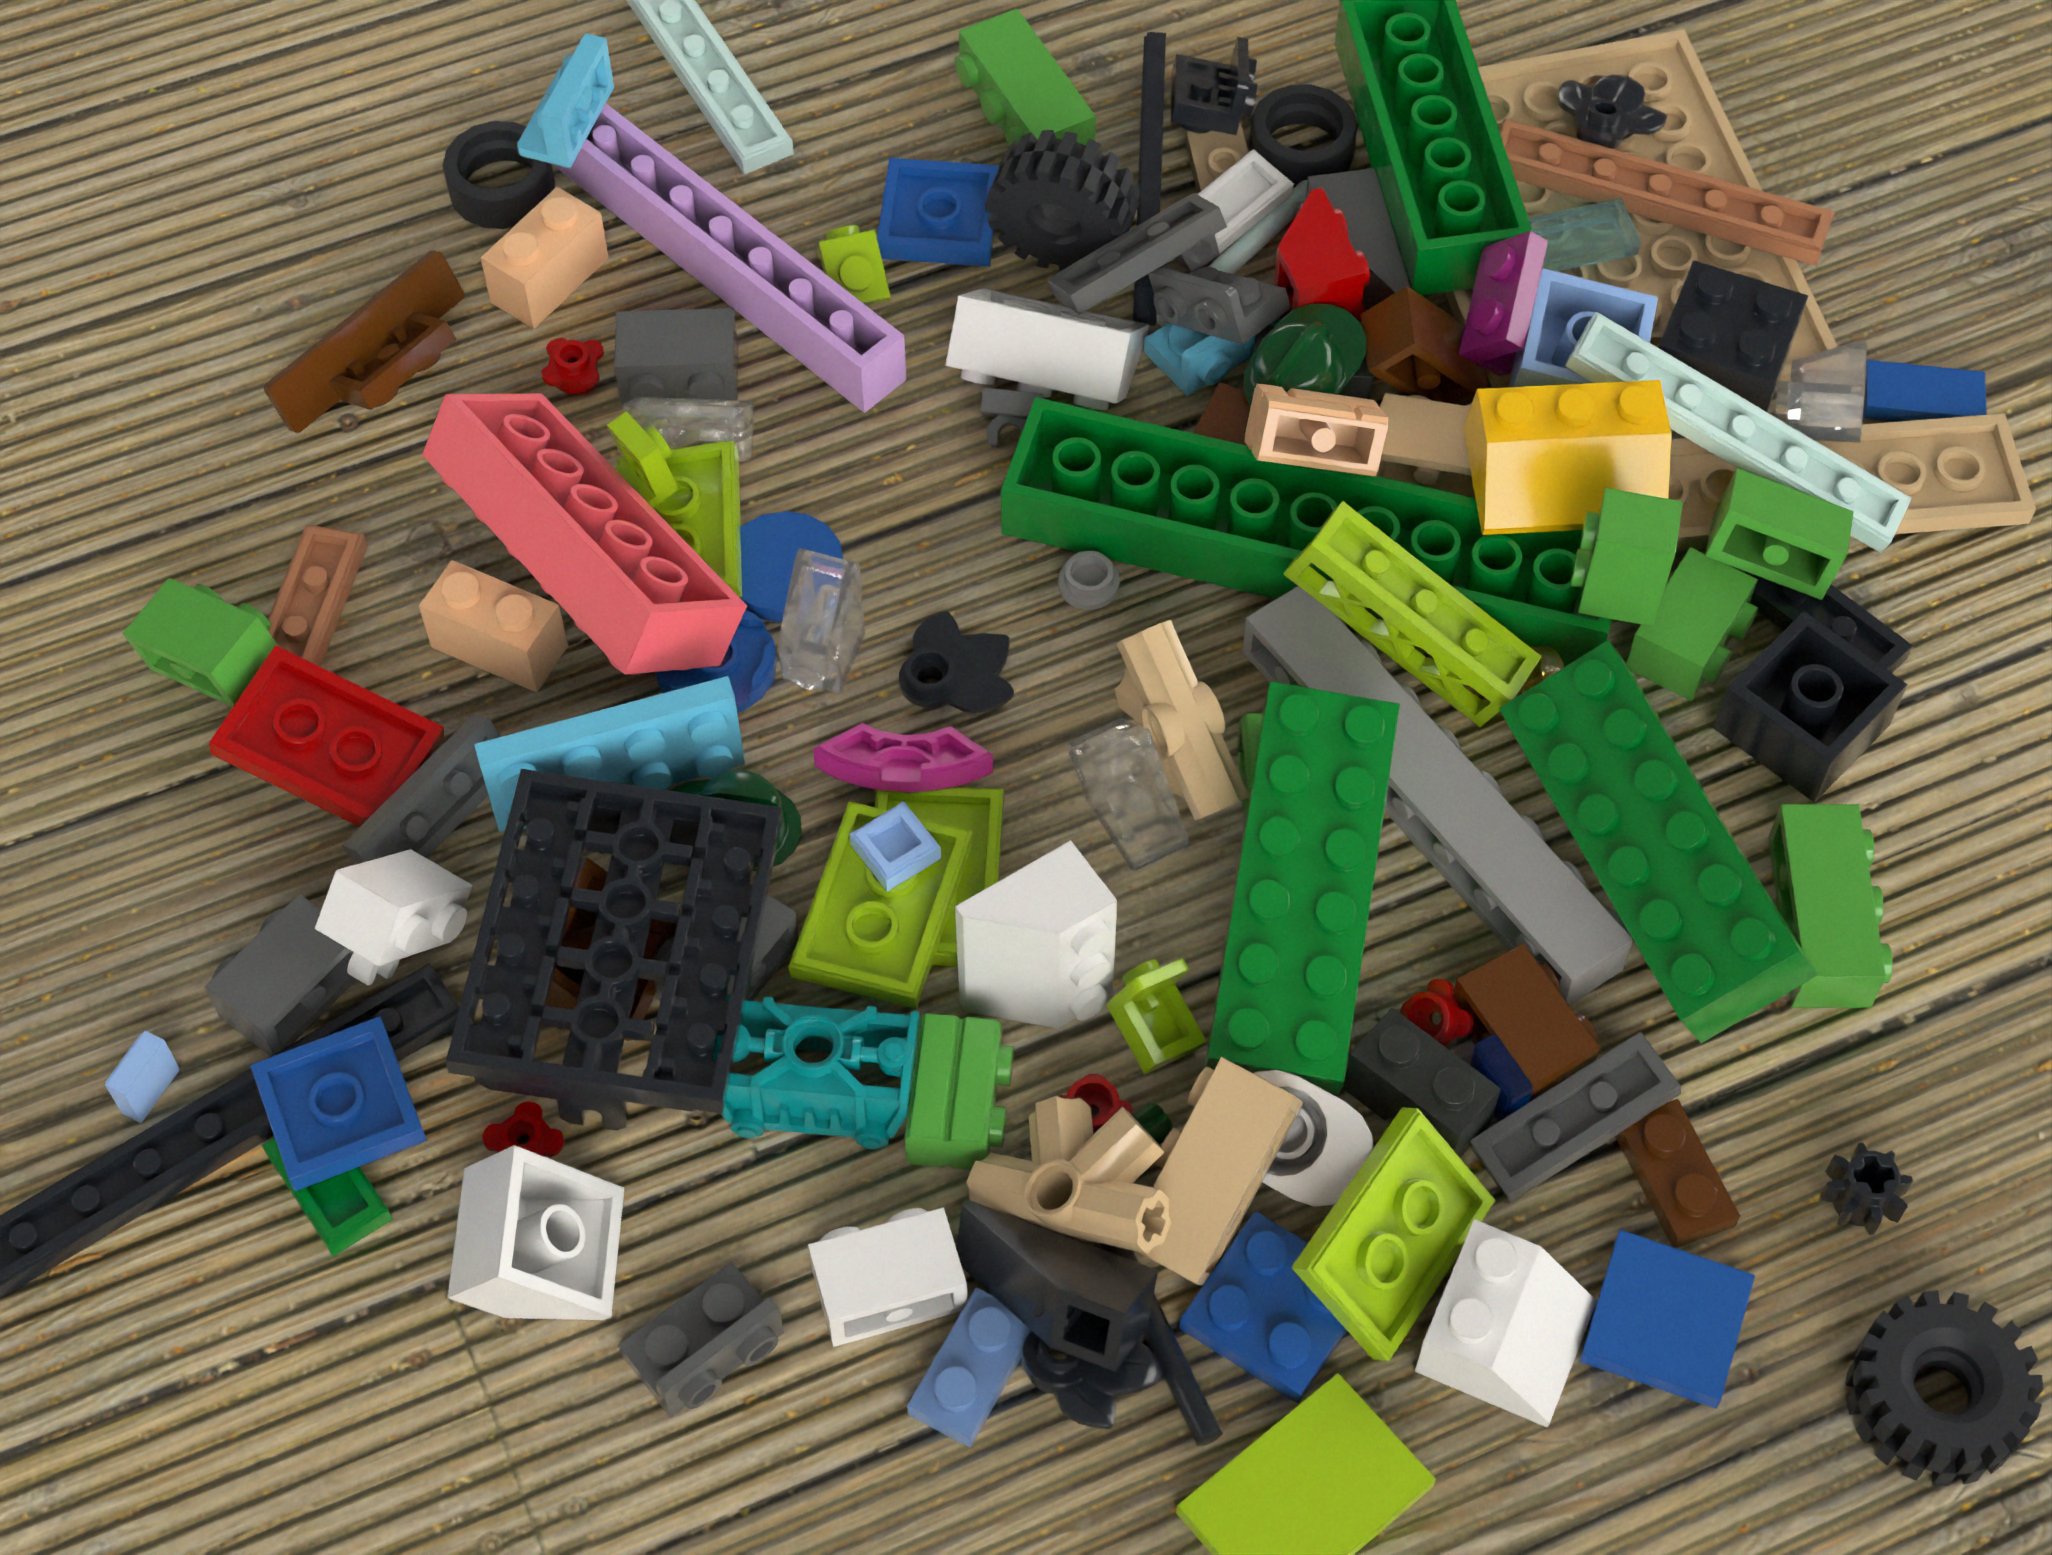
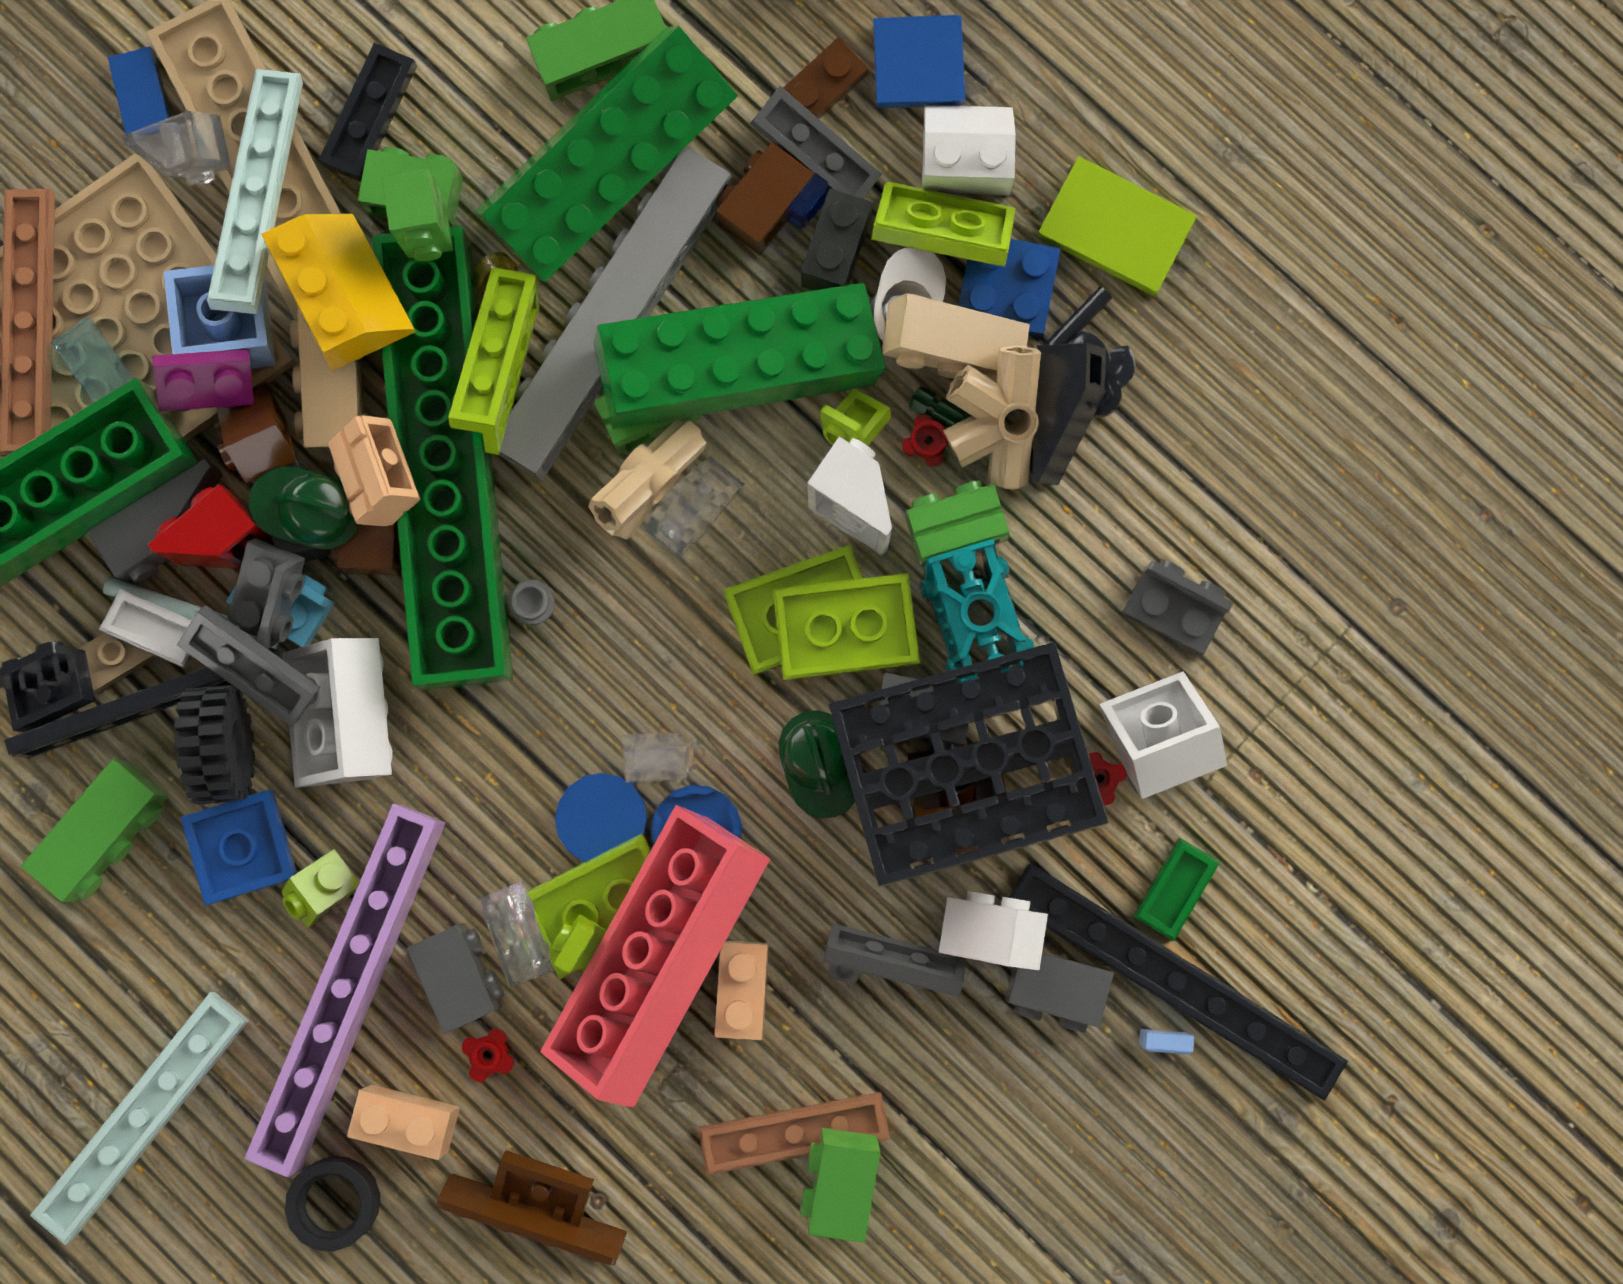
camera: 110 degrees left, 25 degrees up
(323, 737) = (879, 1056): red plate -> none
(337, 1103) = (1136, 899): blue plate -> none
(570, 105) = (283, 1156): medium azure bracket -> none
(634, 743) = (834, 861): medium azure plate -> none
(888, 1275) = (1093, 513): white brick -> none
(895, 846) = (809, 629): light blue tile -> none
(903, 761) = (730, 662): dark pink tile -> none
(962, 664) = (633, 658): black plate -> none
(970, 1369) = (1124, 445): medium blue plate -> none
(1004, 410) = (407, 713): dark grey tile -> none
(1308, 106) = (29, 590): black tyre -> none
(1438, 999) = (789, 258): red plate -> none
(1734, 330) = (165, 221): black brick -> none
(1780, 534) = (327, 142): bright green brick -> none
(1809, 706) = (455, 90): black brick -> none

